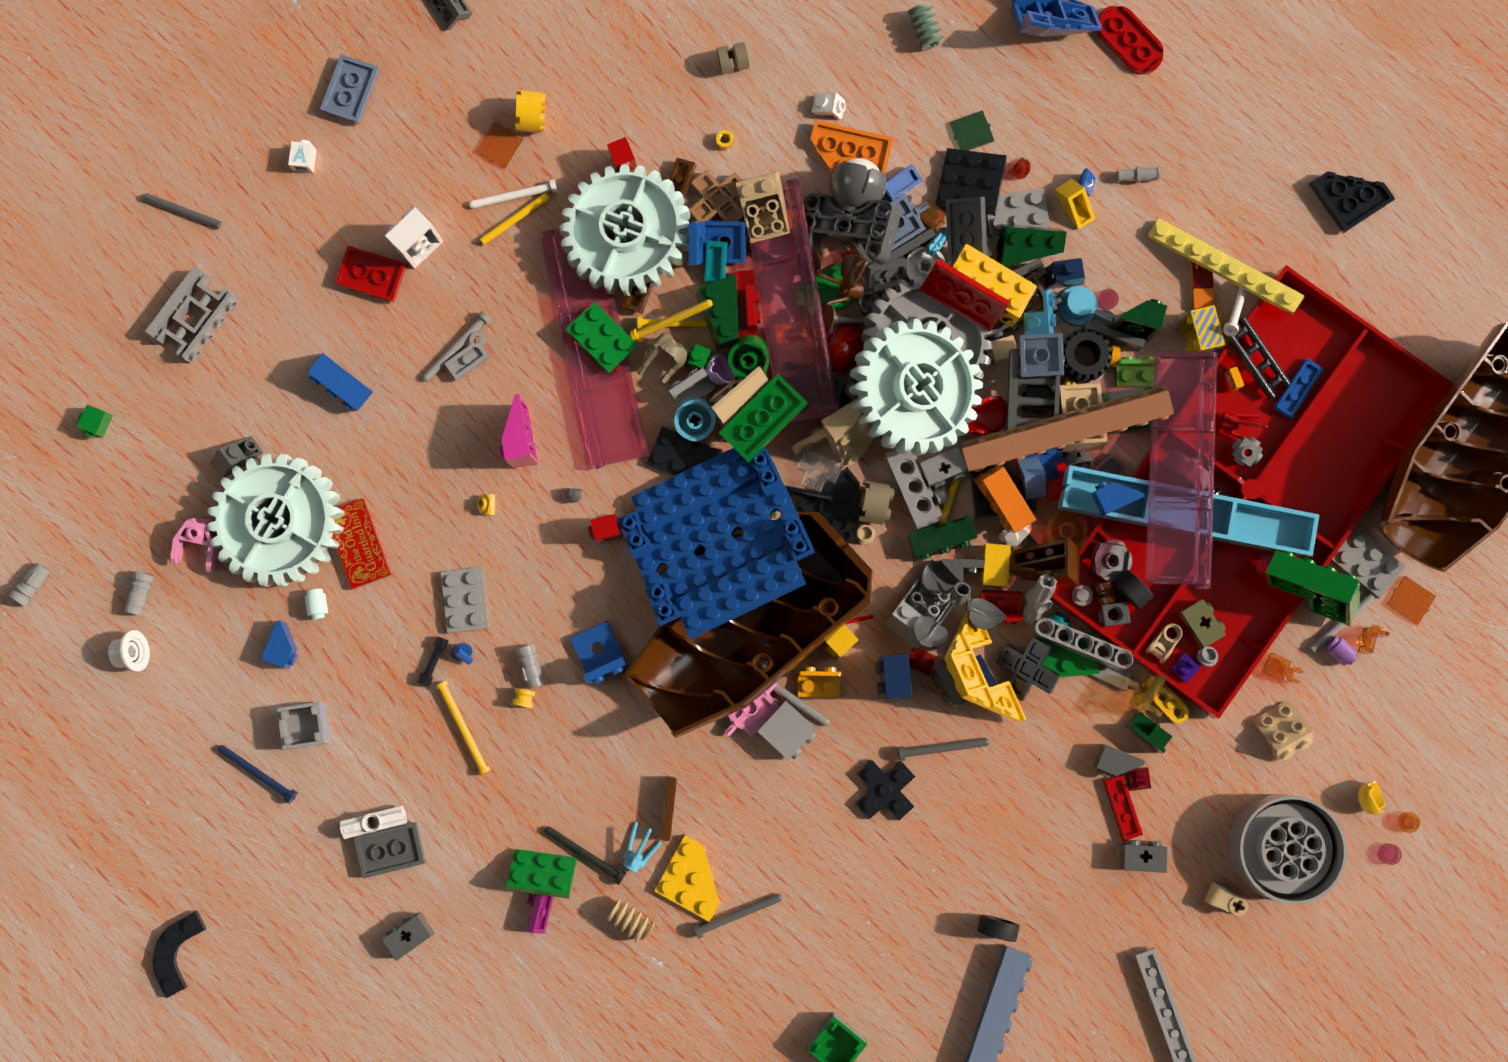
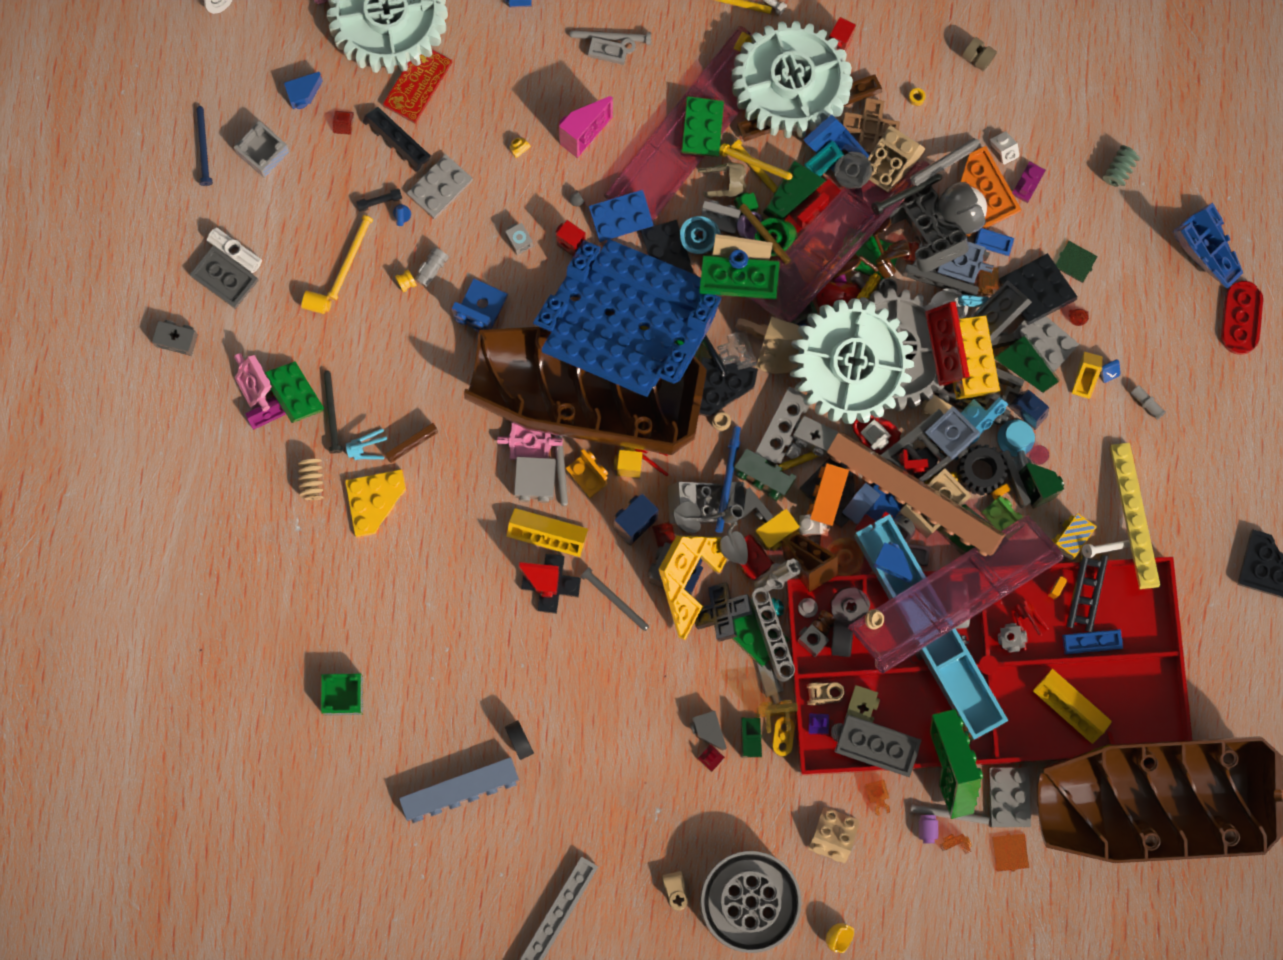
camera: 45 degrees right, 5 degrees down
(166, 950) = (34, 185): black plate -> none
(316, 604) = (352, 89): light aqua brick -> none
(338, 635) = (343, 122): none -> clear red slope
(391, 601) = (397, 138): none -> black hinge
(478, 789) = (316, 302): none -> yellow brick
(504, 902) = (252, 381): none -> bright pink plate
(555, 240) = (742, 39): none -> yellow plate
(567, 571) = (519, 238): none -> light grey brick
(621, 469) = (621, 215): none -> blue plate
(736, 915) = (375, 551): dark grey bar -> none
(746, 245) = (853, 170): none -> dark grey tile
(748, 400) = (738, 254): none -> blue plate
(751, 365) = (765, 234): none -> pearl gold bar
(799, 253) = (878, 207): none -> pearl dark grey bar
(802, 164) = (945, 162): none -> light grey axle
(840, 757) = (547, 532): none -> yellow brick
(855, 317) = (870, 286): none -> yellow axle
(873, 111) = (1028, 182): none -> magenta hinge
(874, 502) = (748, 406): dark tan brick -> none
(879, 797) = (541, 577): none -> red slope
(886, 275) = (918, 283): dark grey slope -> none
(895, 541) = (734, 445): none -> blue bar
(987, 417) = (876, 435): none -> white bracket
(1042, 407) = (916, 465): none -> red bracket
(1122, 807) = (680, 763): red tile -> none
(1131, 860) = (658, 816): dark grey brick -> none
(1157, 555) = (874, 619): none -> tan plate
(1202, 287) = (1107, 515): tile -> none
(1247, 636) = (878, 745): none -> dark grey tile
(1339, 450) = (1072, 706): none -> yellow brick

